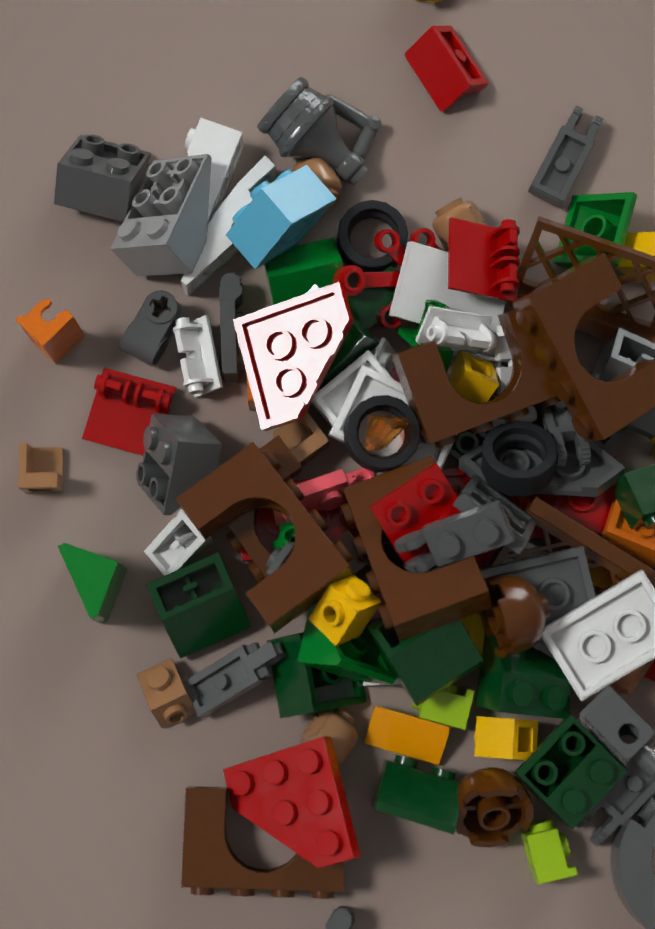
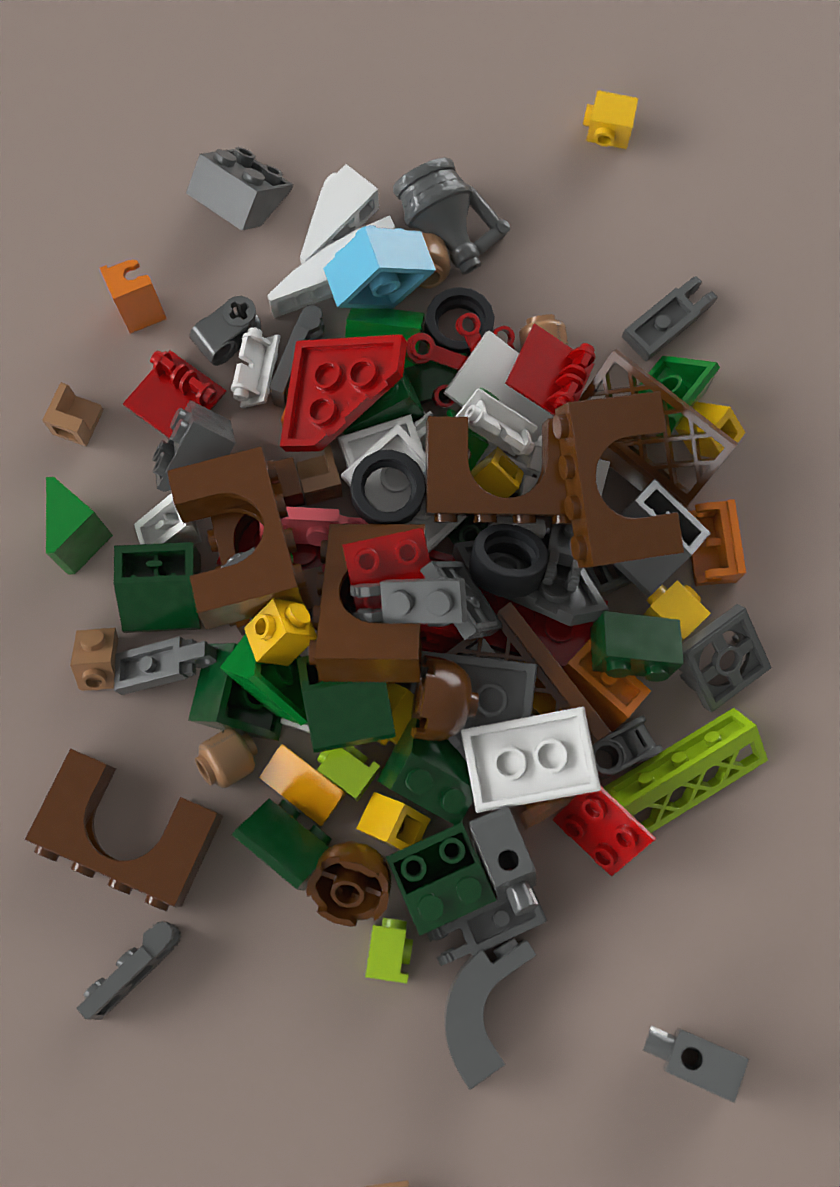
camera: 25 degrees right, 5 degrees down
(167, 218) = (277, 238): light grey slope -> none
(297, 801) = (168, 802): red plate -> none
(383, 431) = (387, 484): clear orange slope -> none
(445, 66) = (589, 201): red panel -> none

